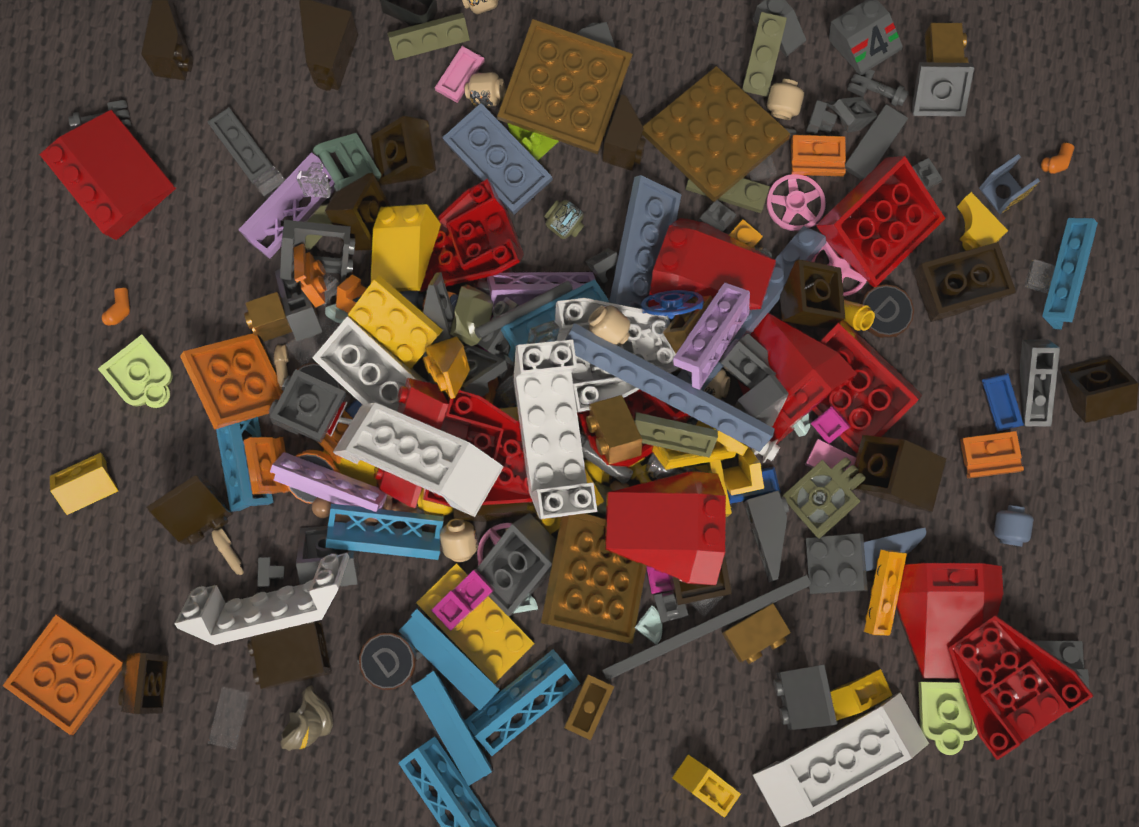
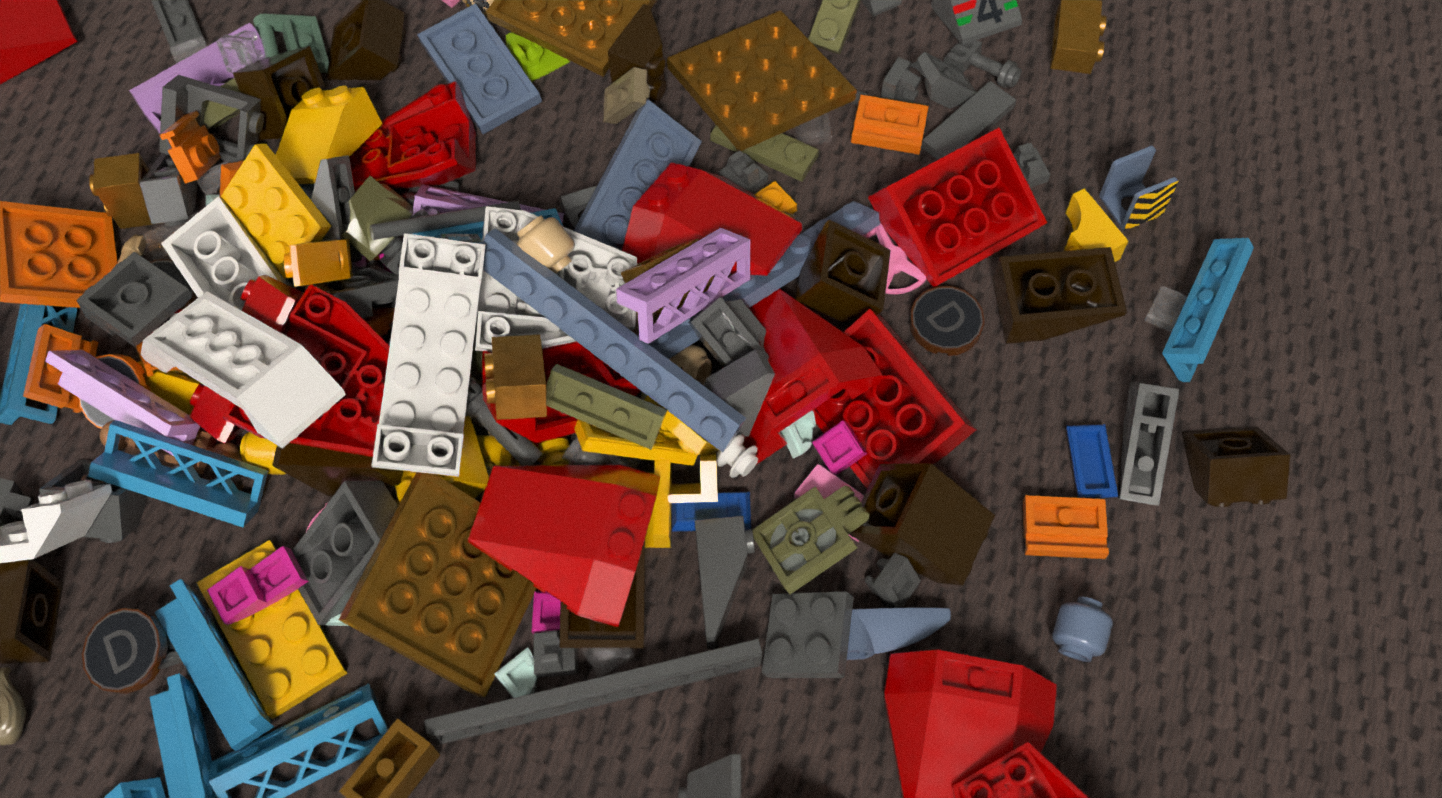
camera: 15 degrees right, 15 degrees down
(458, 540) = (279, 506): tan head -> none
(564, 219) = (542, 145): head -> none
(620, 171) = (626, 95): none -> dark tan plate
(671, 302) = (640, 238): blue wheel -> none
(757, 633) = (669, 714): pearl gold brick -> none
(785, 99) = (859, 55): tan head -> none
(795, 202) = (848, 174): bright pink wheel -> none
(858, 315) = (903, 313): yellow cone -> none
(885, 592) = (871, 687): light orange plate -> none
(886, 515) = (894, 582): none -> dark grey tile
(942, 89) = (1065, 69): plate -> none
(1059, 162) = (1211, 179): orange arm -> none

